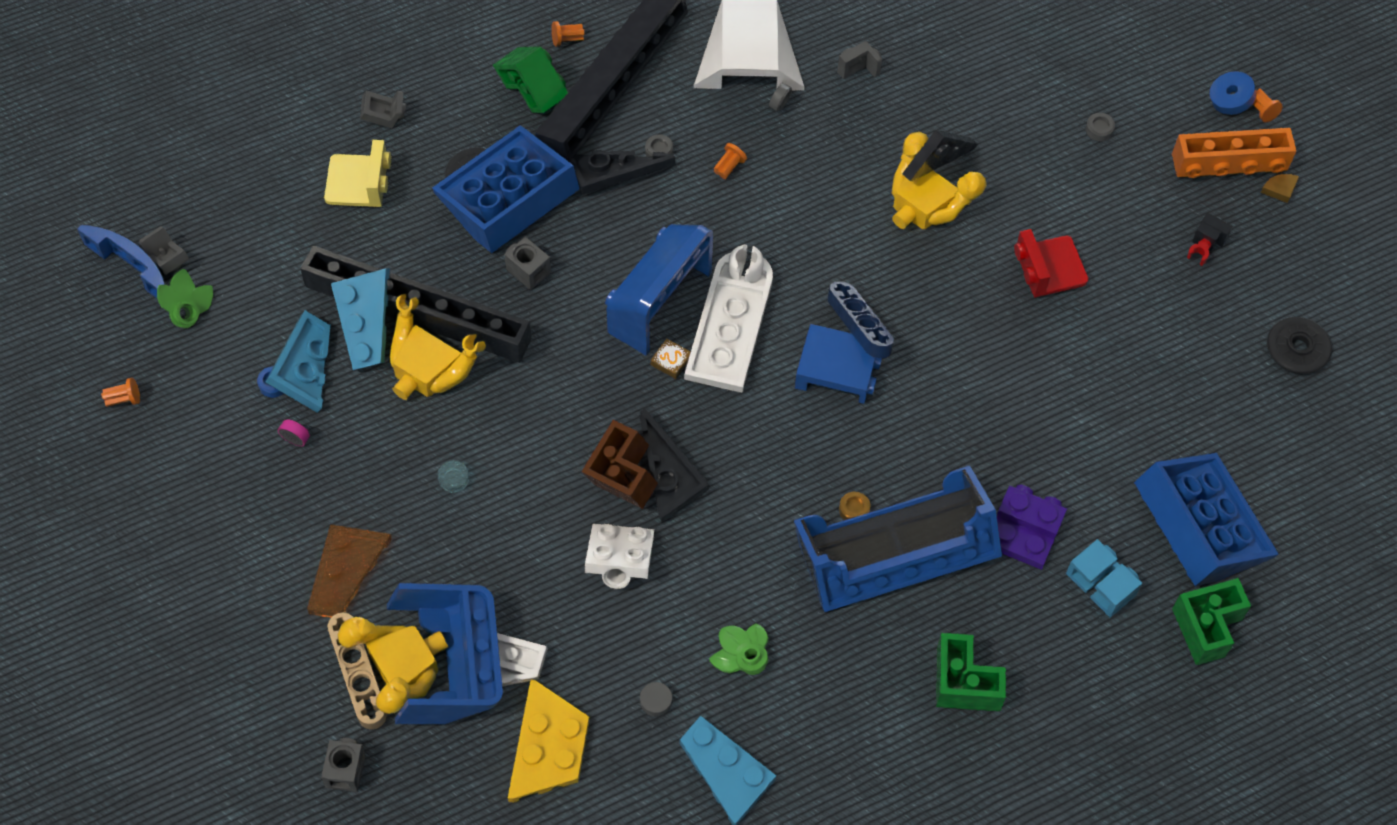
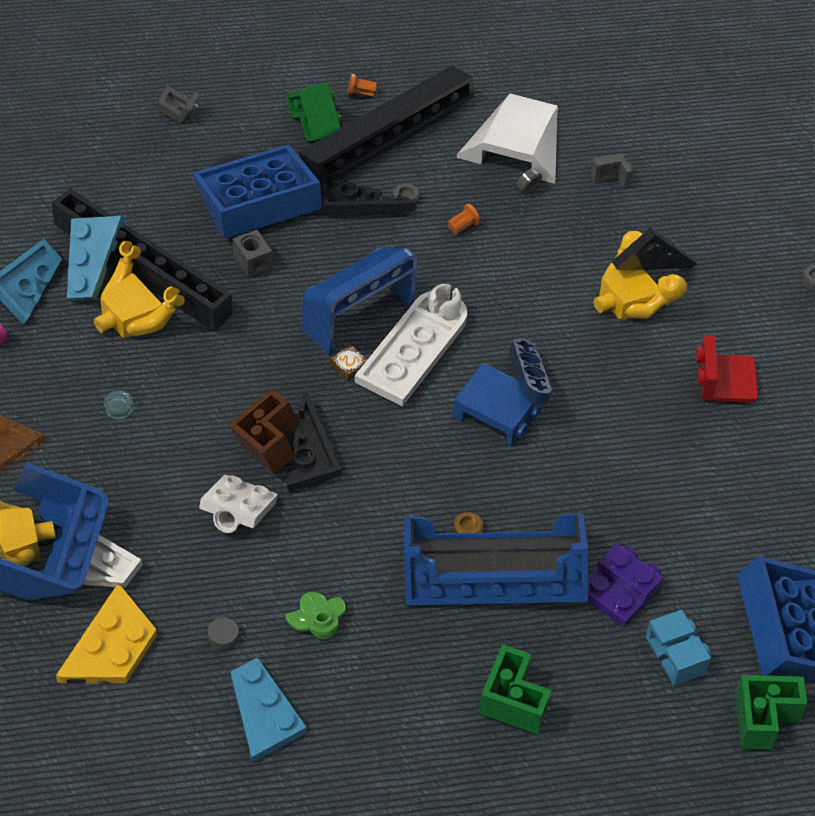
camera: 15 degrees right, 10 degrees down
(358, 178) = (135, 153): light yellow bracket -> none

